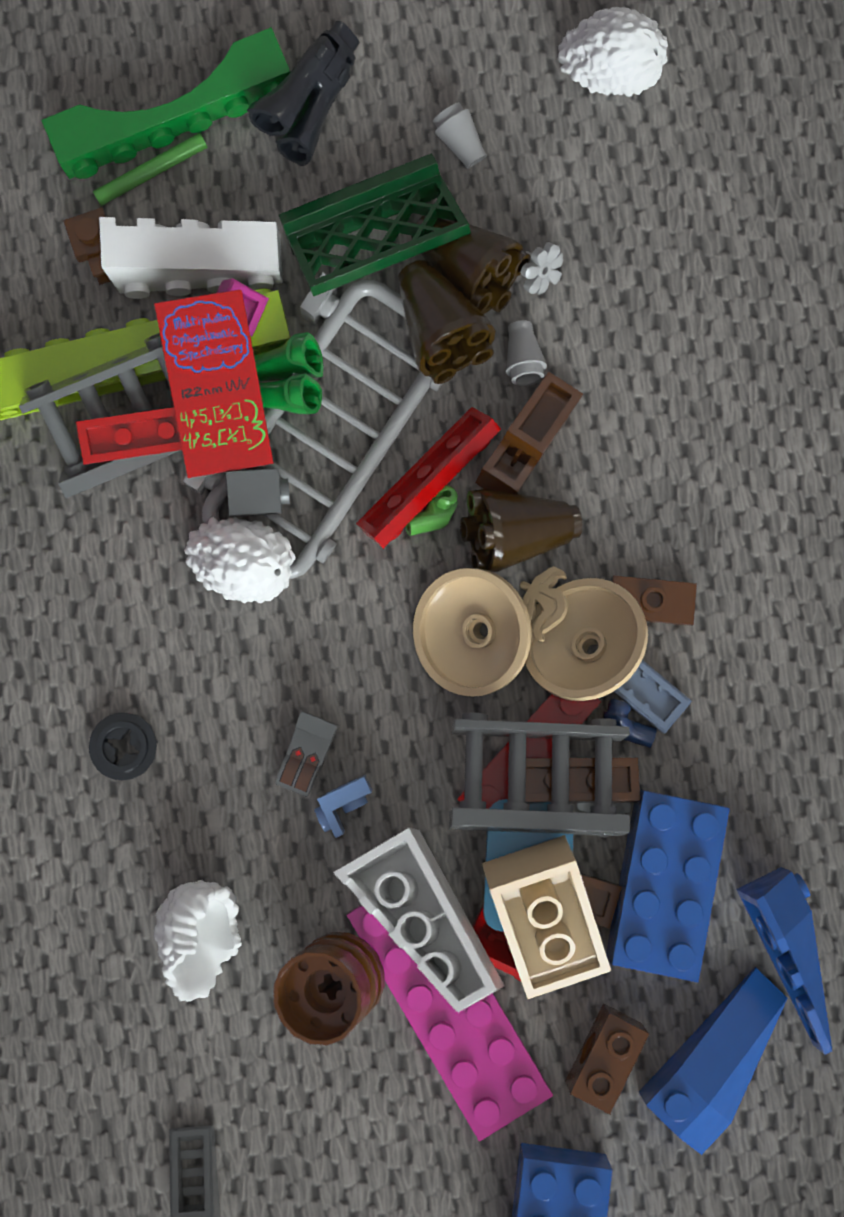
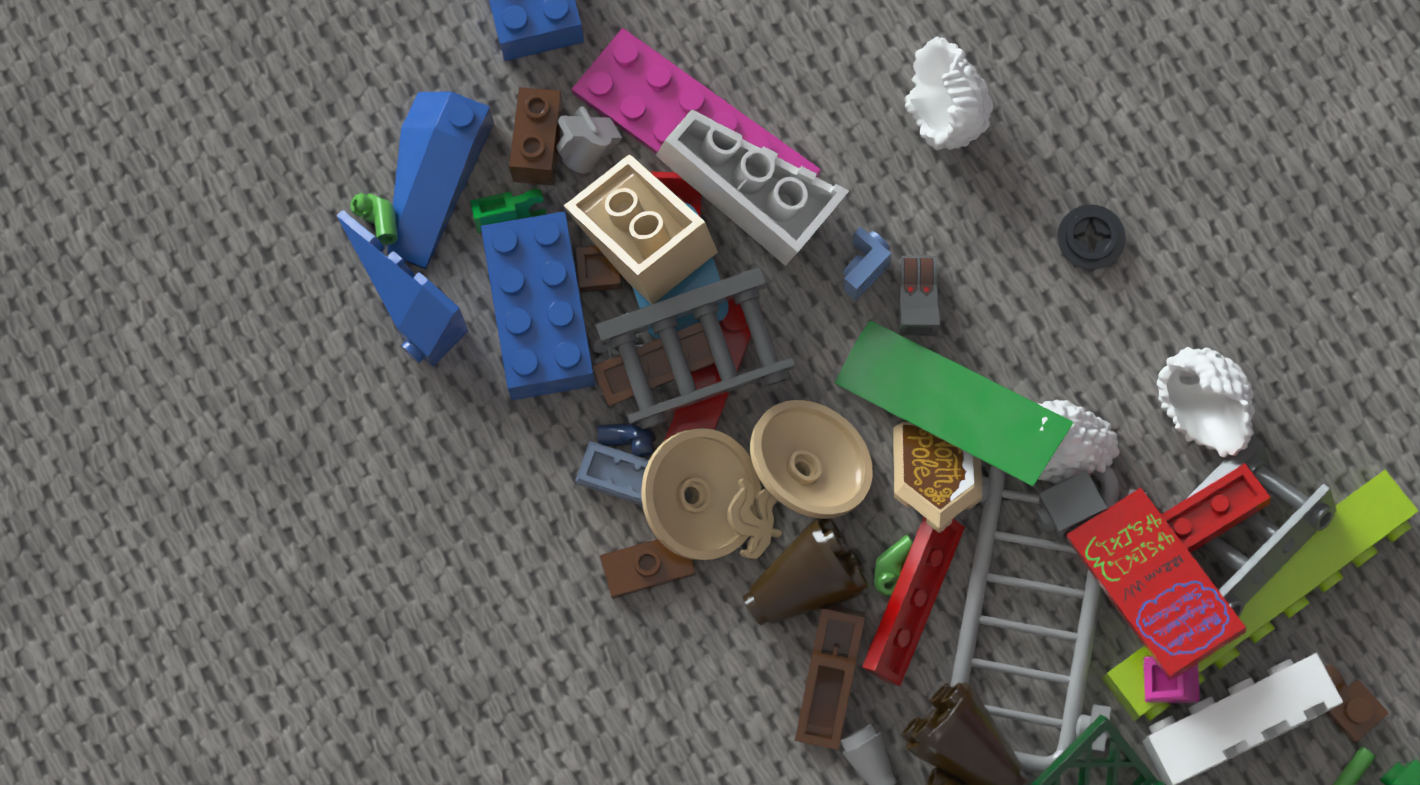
camera: 160 degrees right, 10 degrees down
(87, 542) = (1208, 400): none -> white piece
(294, 367) = (1088, 652): green piece -> none
(321, 630) = (953, 403): none -> green sticker
(328, 988) = (810, 98): reddish brown wheel -> none
(360, 578) = (934, 475): none -> tile
(560, 1035) = (585, 140): none -> light grey piece
(663, 996) = (505, 207): none -> green plate
(783, 1041) = (378, 212): none -> bright green arm

